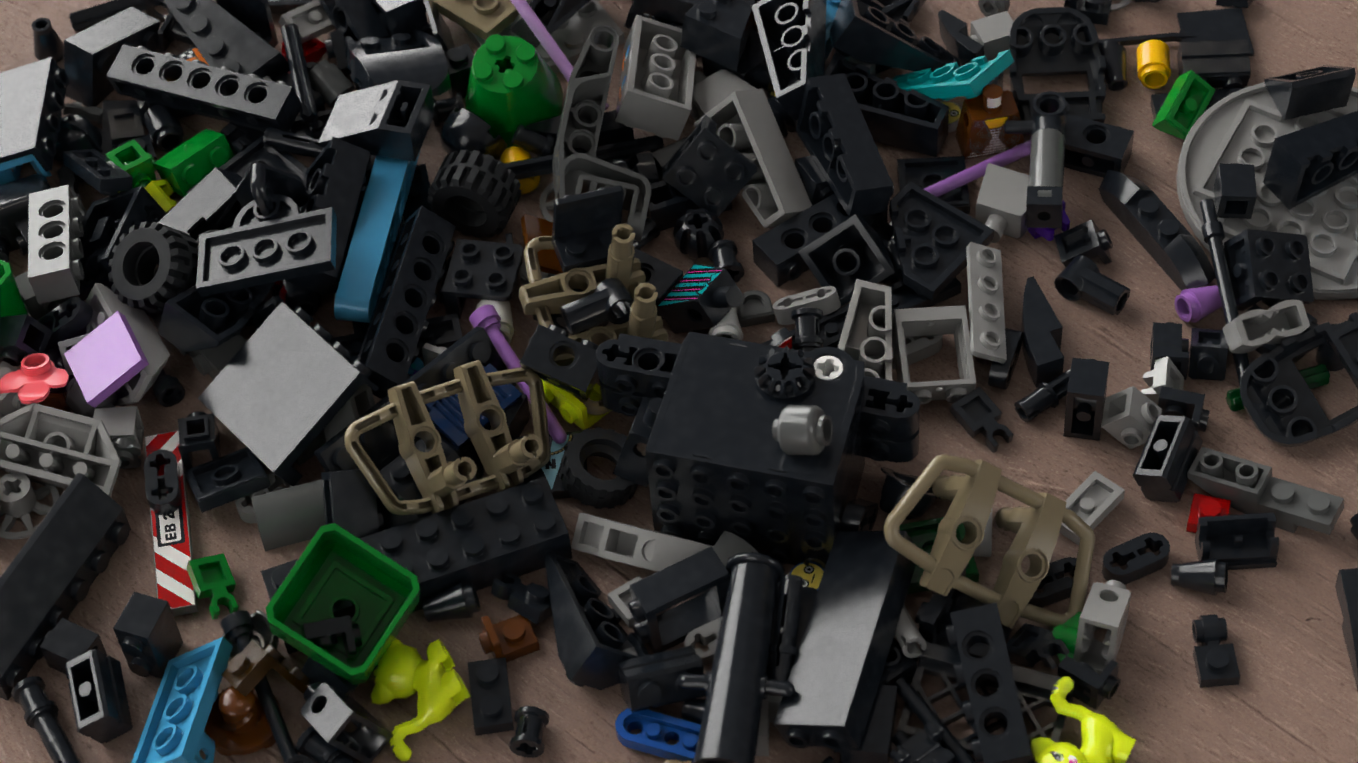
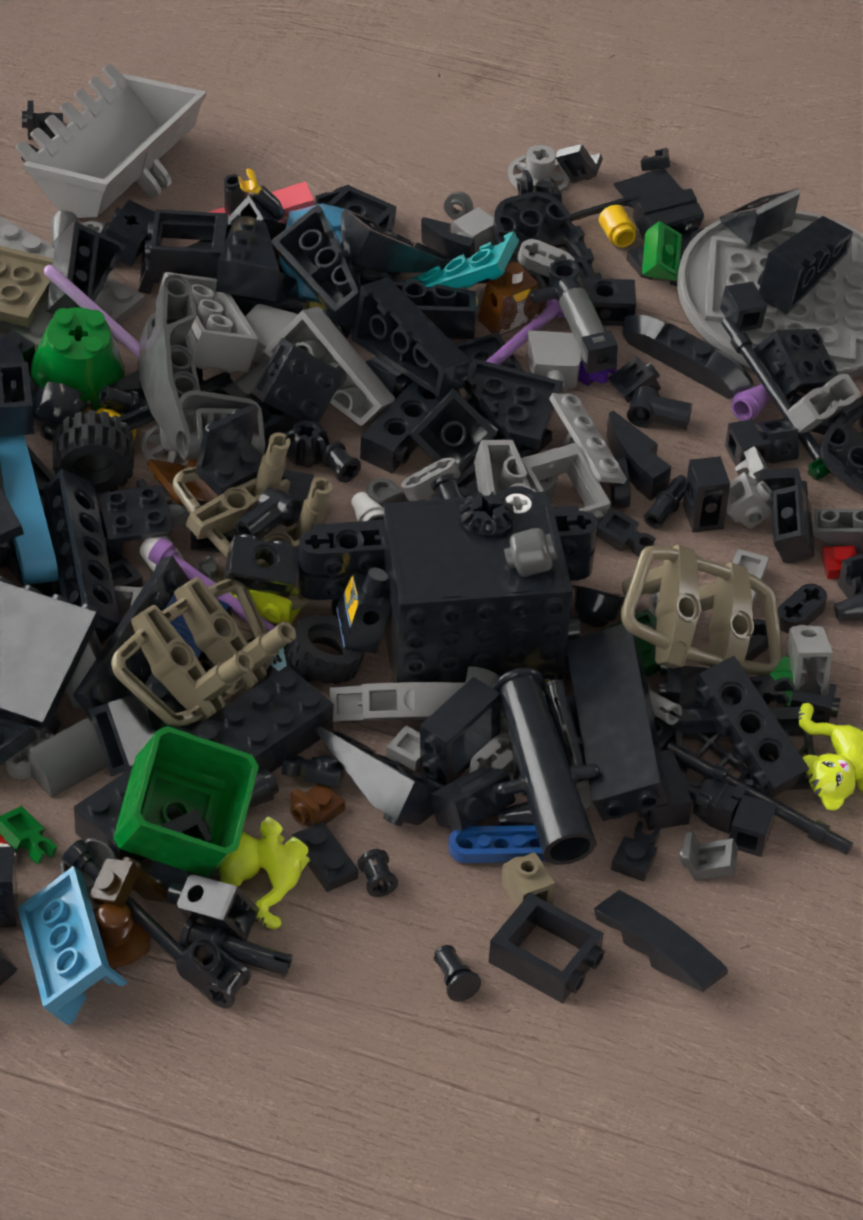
camera: 30 degrees left, 5 degrees down
(700, 299) = (350, 489): black torso -> none
(1048, 81) = (544, 256): none -> light grey beam
(1115, 64) = (591, 238): black cone -> none

